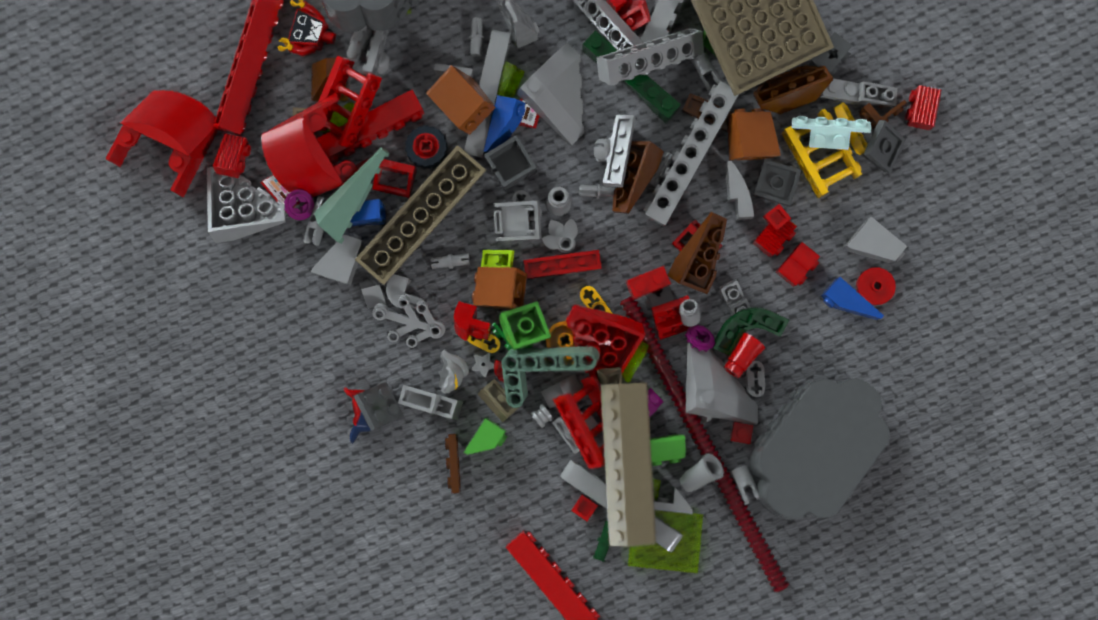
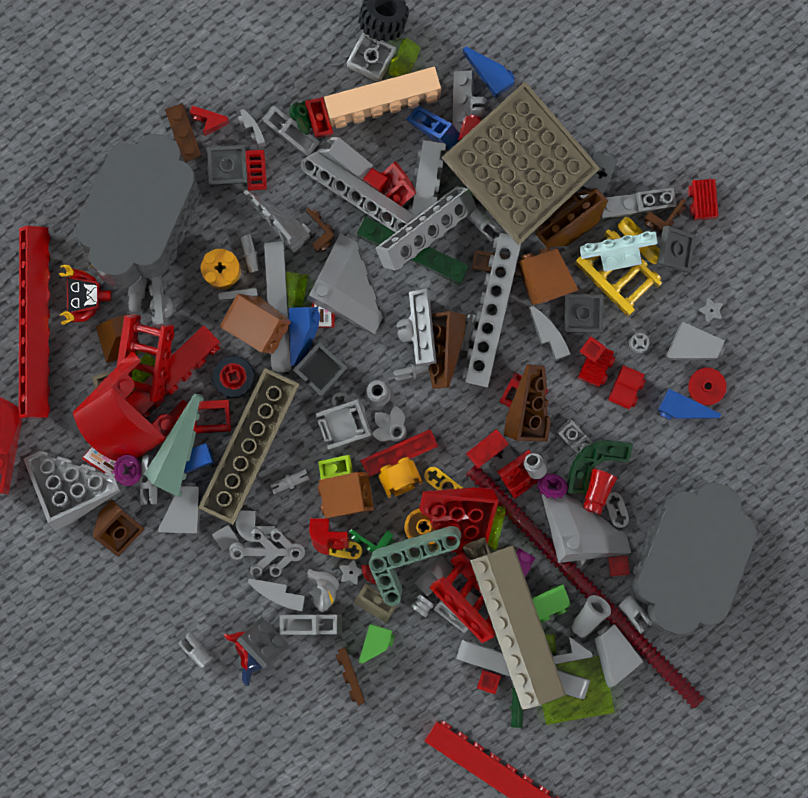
camera: 20 degrees left, 0 degrees up
(232, 156) = (46, 440): red brick -> none
(273, 257) = (116, 528): none -> reddish brown slope
(314, 395) = (199, 653): none -> light grey hinge
(408, 364) = (278, 594): none -> light grey slope
(439, 33) = (213, 261): none -> light orange brick
(524, 325) = (380, 524): bright green slope -> none
(549, 44) = (323, 242): none -> reddish brown bracket
(556, 287) = (400, 477): none -> light orange brick
(715, 518) = (615, 655): none -> light grey slope
(825, 223) = (639, 339): none -> light grey wheel
(905, 214) = (706, 310): none -> light grey plate

